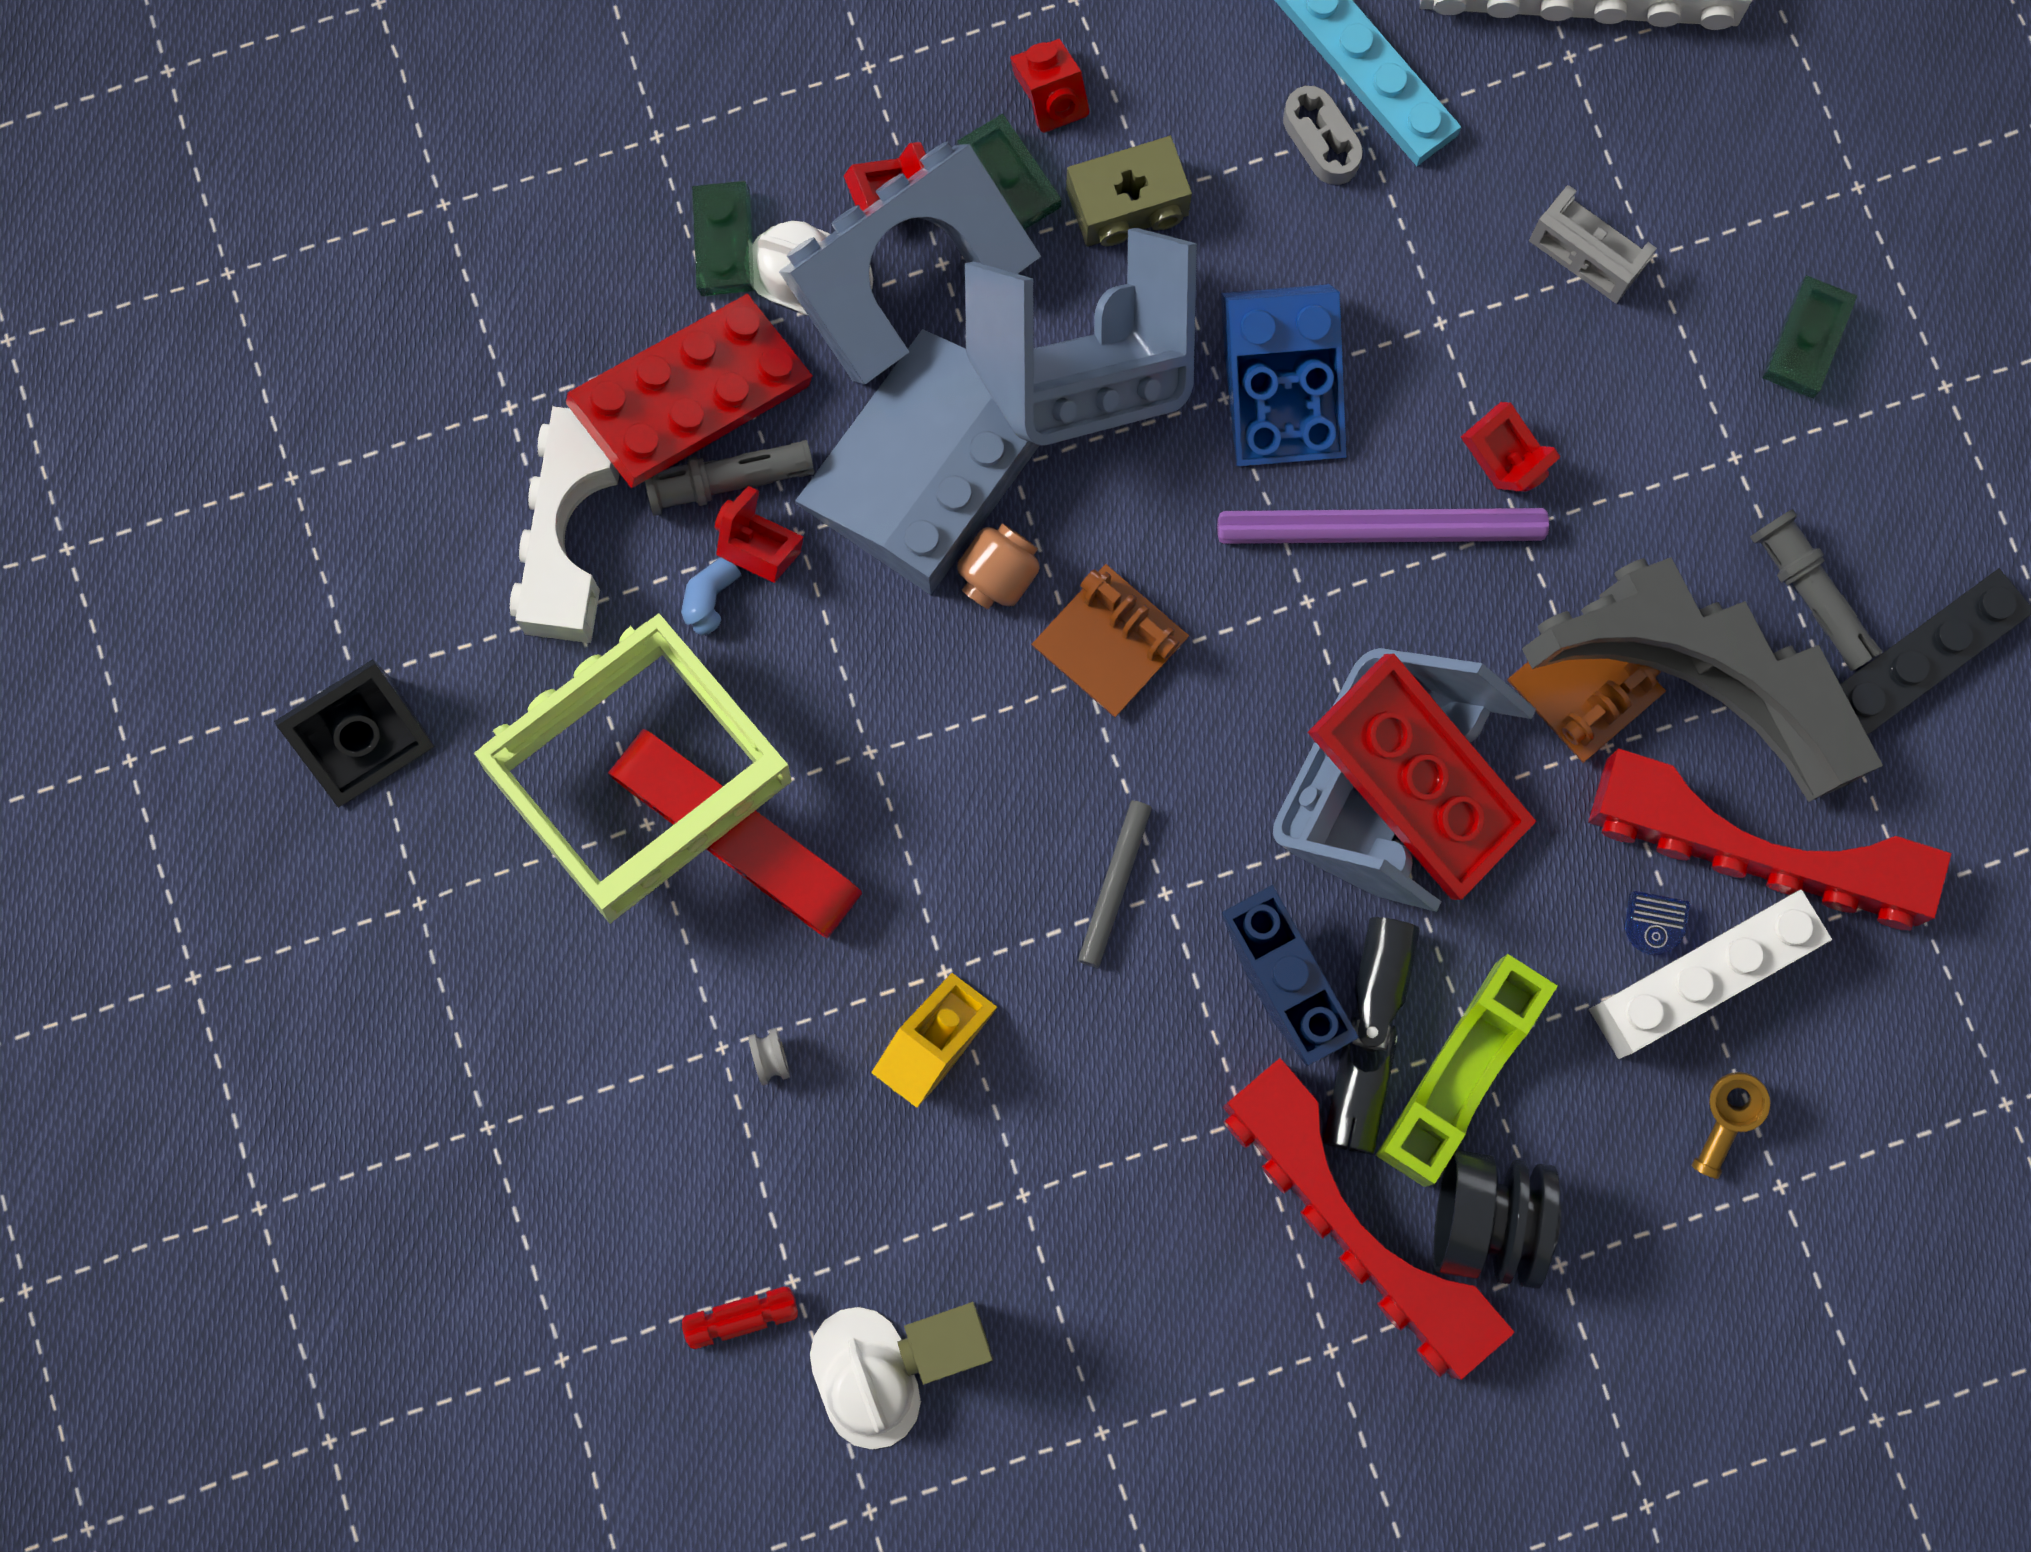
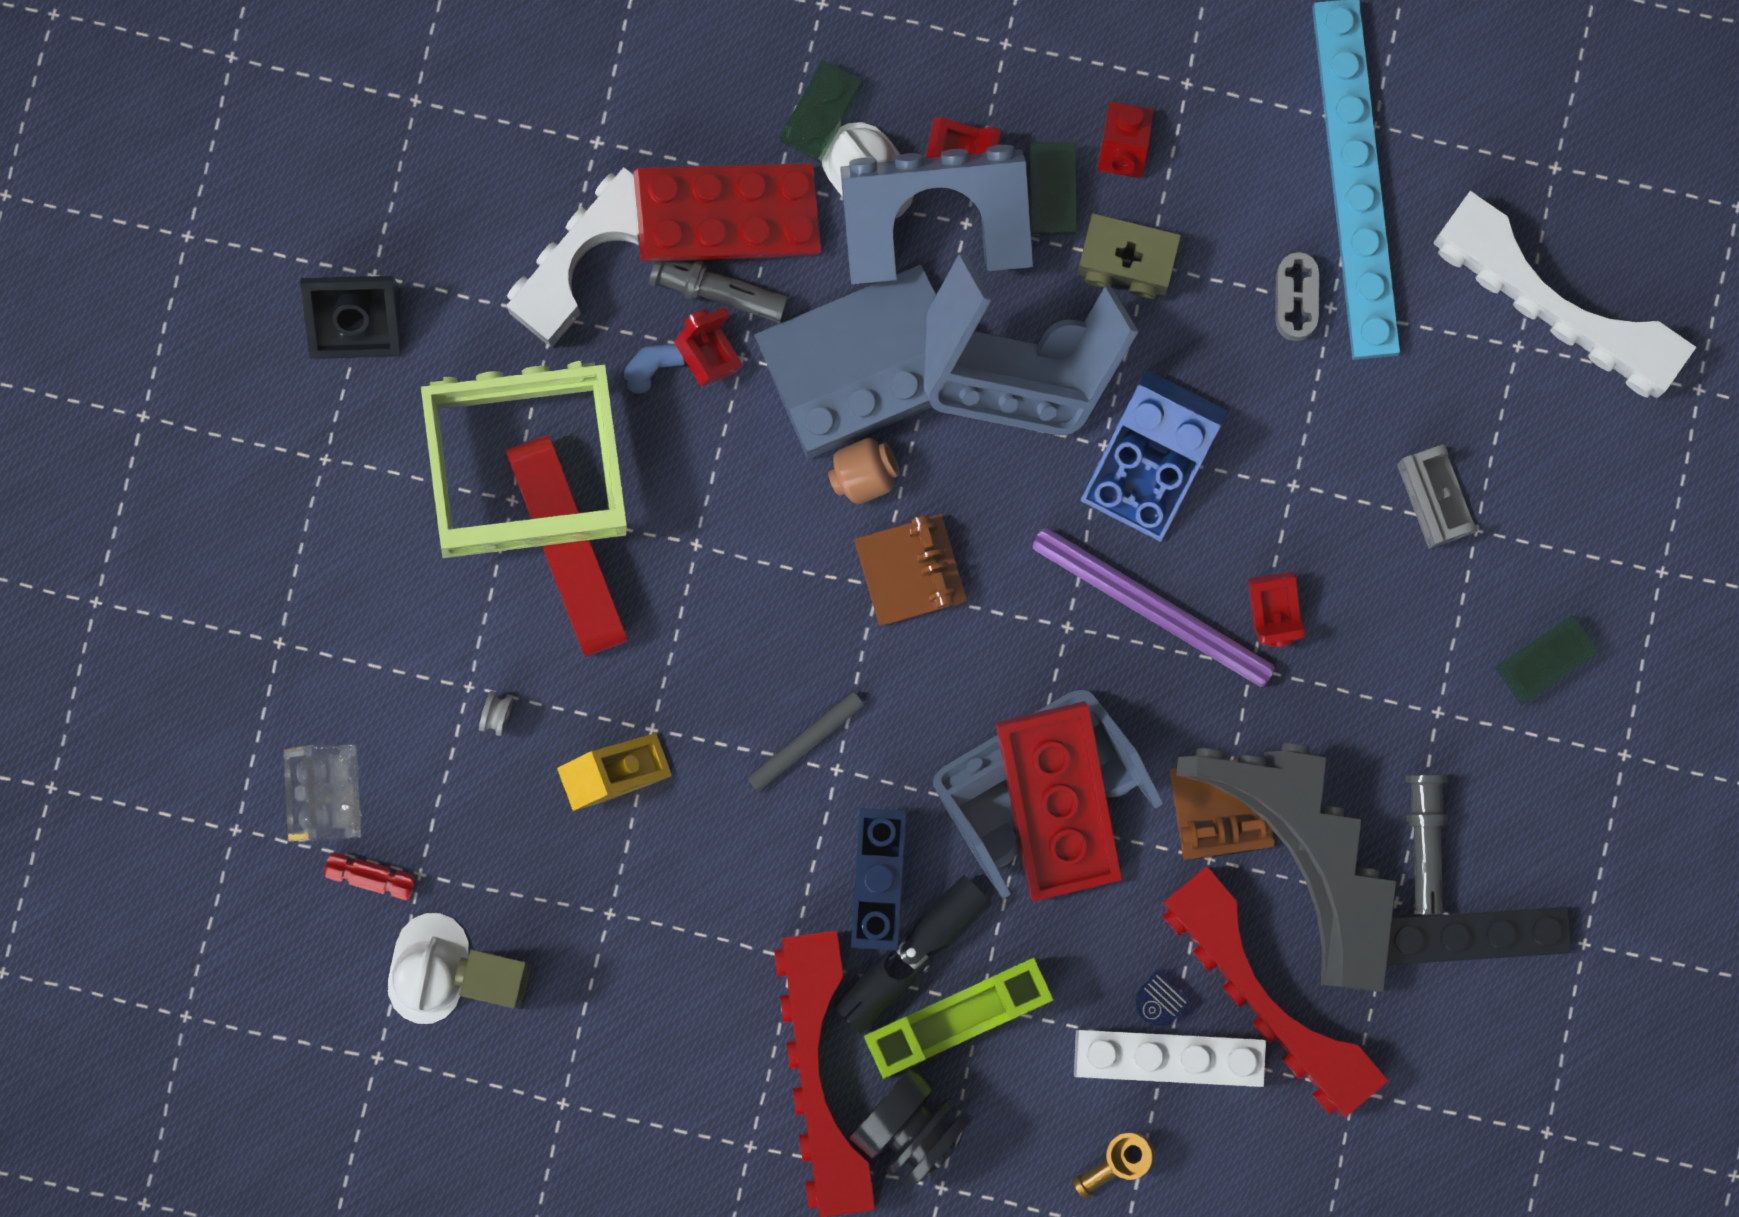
camera: 30 degrees right, 5 degrees up
(632, 1258) = (322, 793): none -> clear brick

